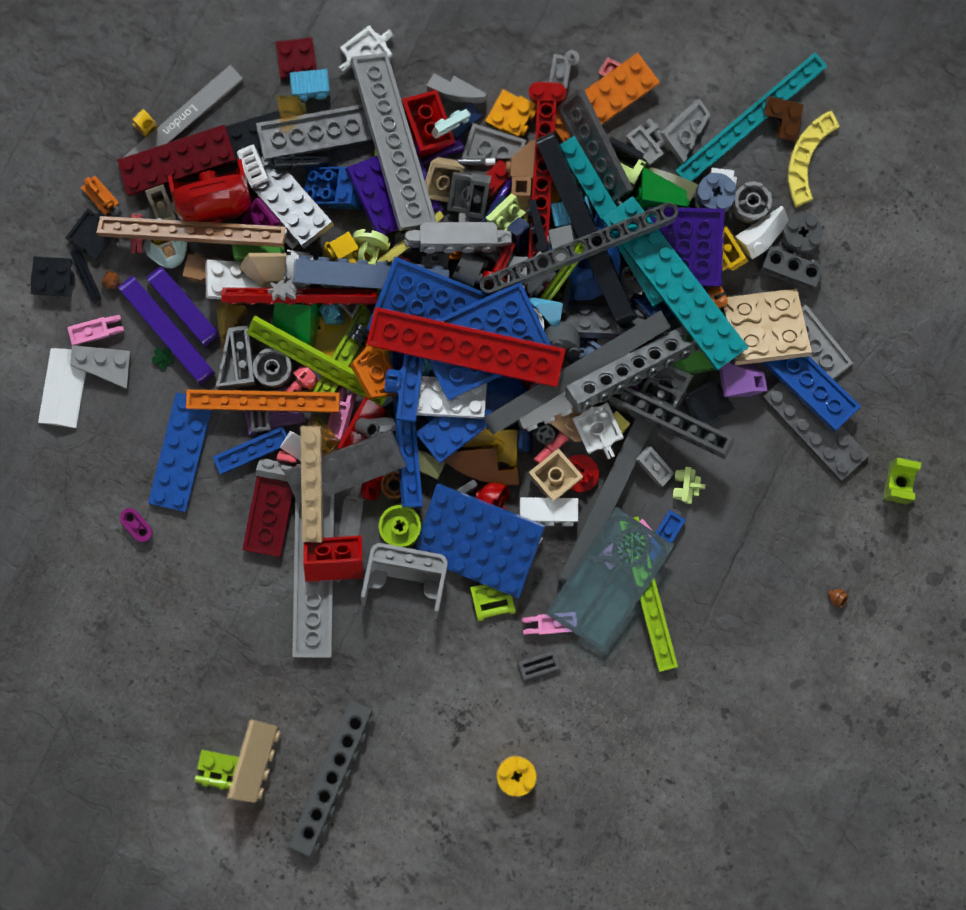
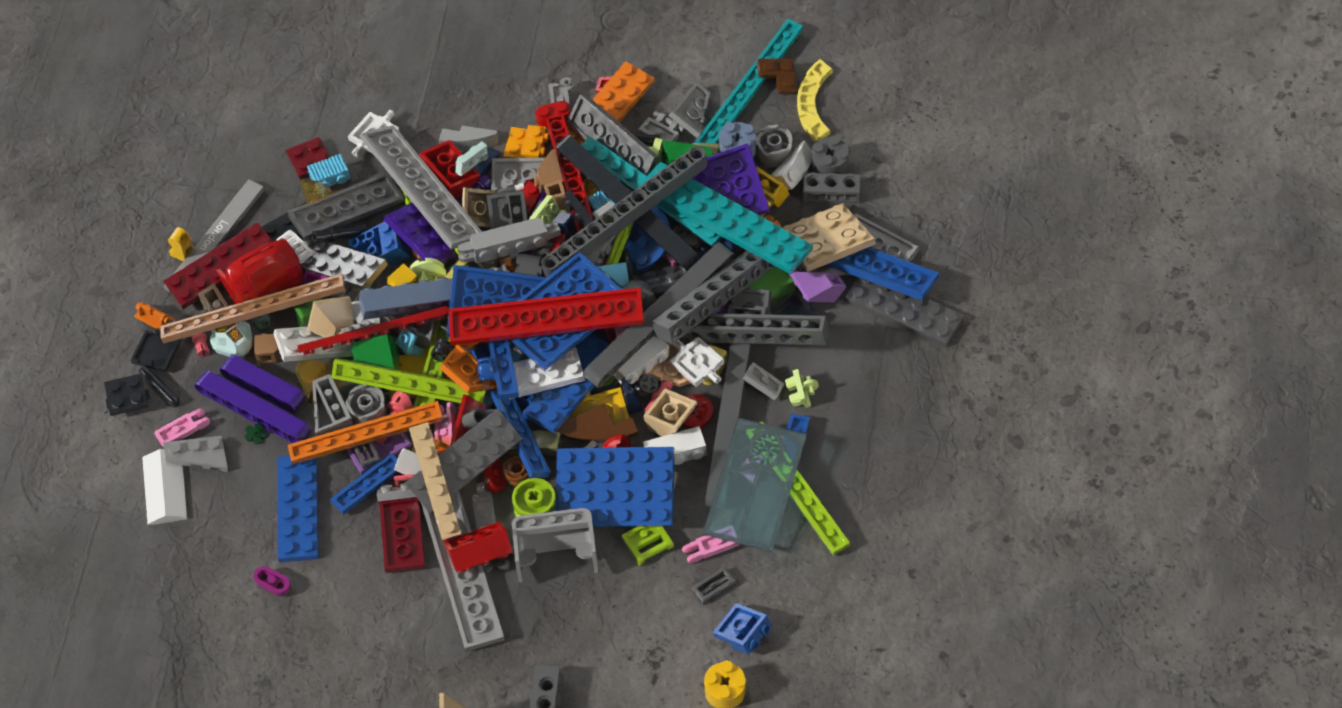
camera: 10 degrees left, 25 degrees down
(111, 280) = (185, 383): dark orange plate -> none
(551, 722) = (743, 628): none -> blue plate
(838, 597) = (982, 440): dark orange plate -> none
(907, 472) = (1001, 323): lime piece -> none

